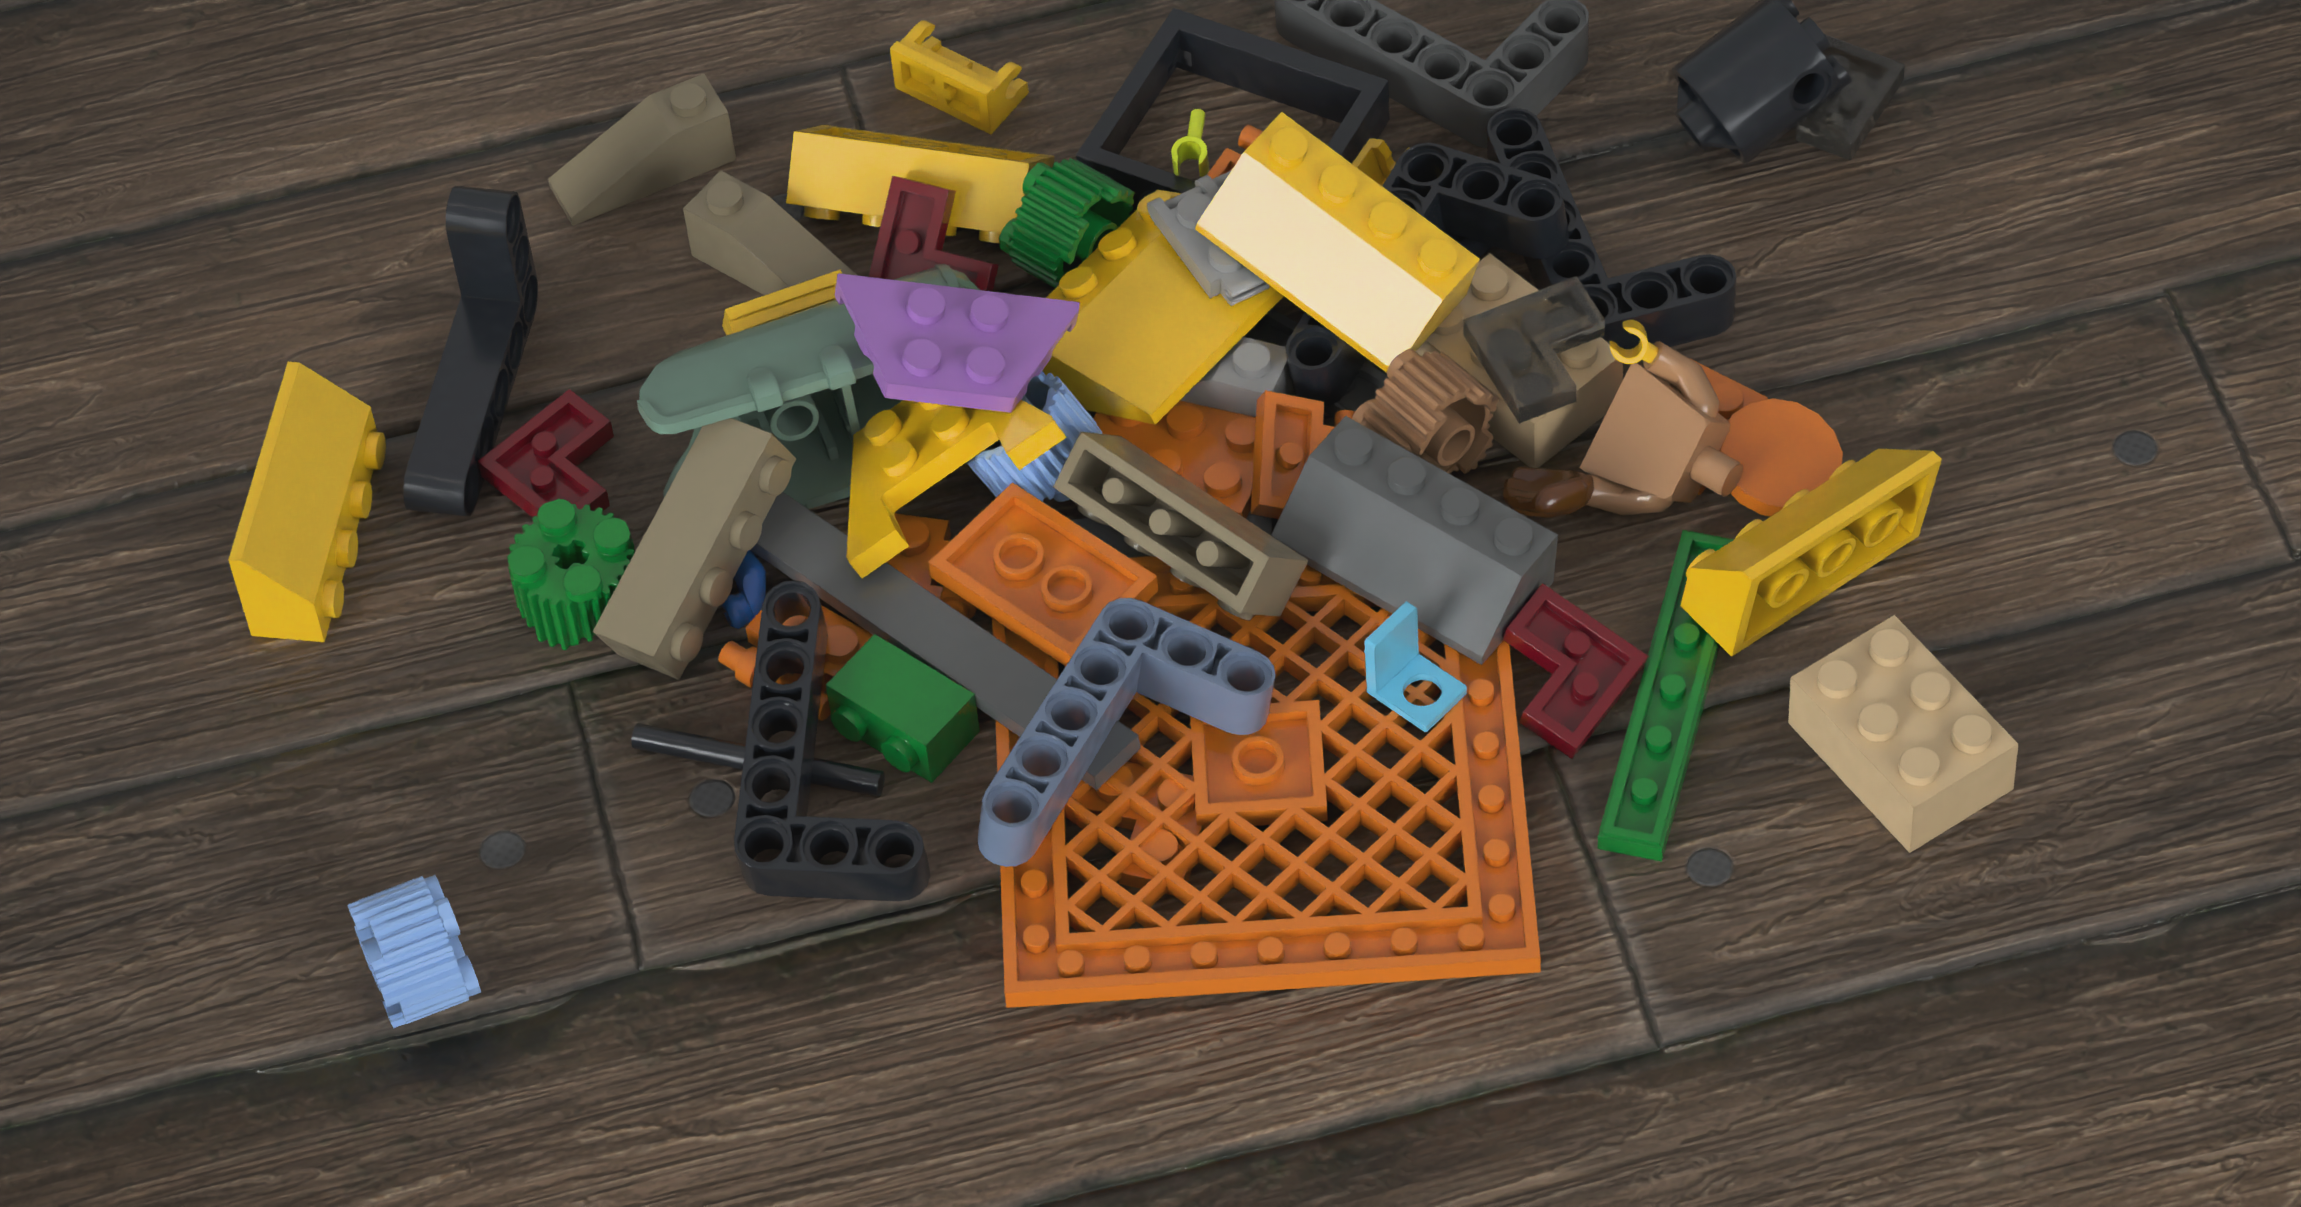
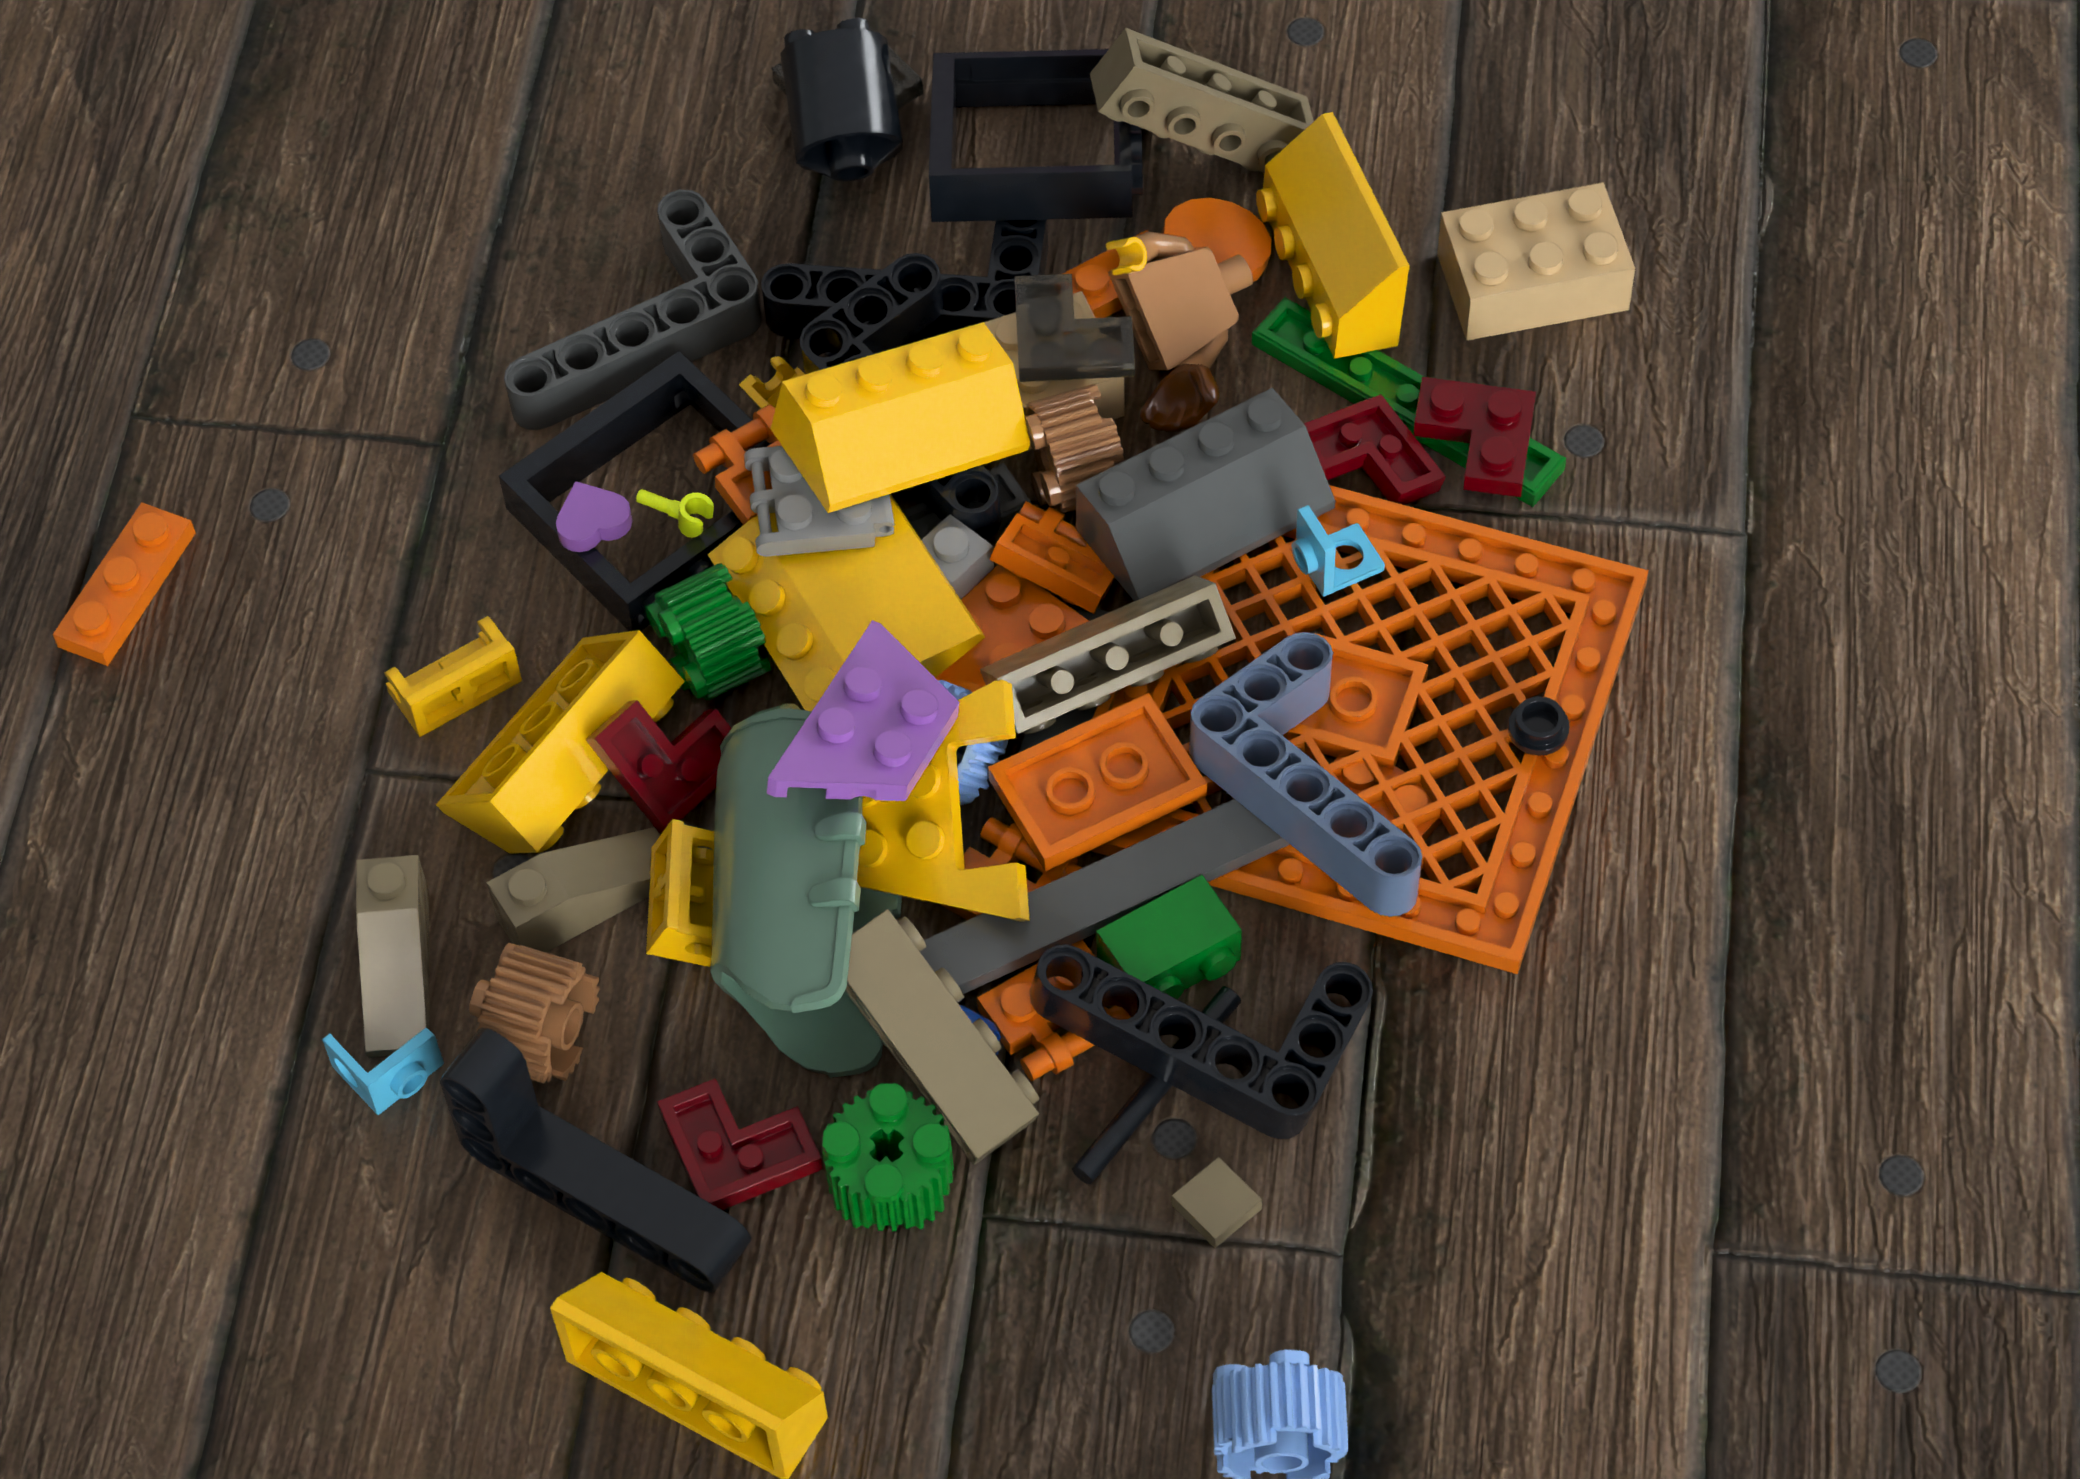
camera: 70 degrees left, 5 degrees up
(541, 206) = (395, 1077): none -> medium azure bracket
(608, 260) = (537, 1007): none -> medium nougat brick
(648, 847) = (1216, 1202): none -> dark tan tile
(1150, 86) = (592, 516): none -> medium lavender tile
(1282, 913) = (1538, 726): none -> black plate
(1659, 766) = (1487, 417): none -> dark red plate
(1798, 174) = (1024, 192): none -> black window
(1902, 350) = (1197, 101): none -> dark tan brick

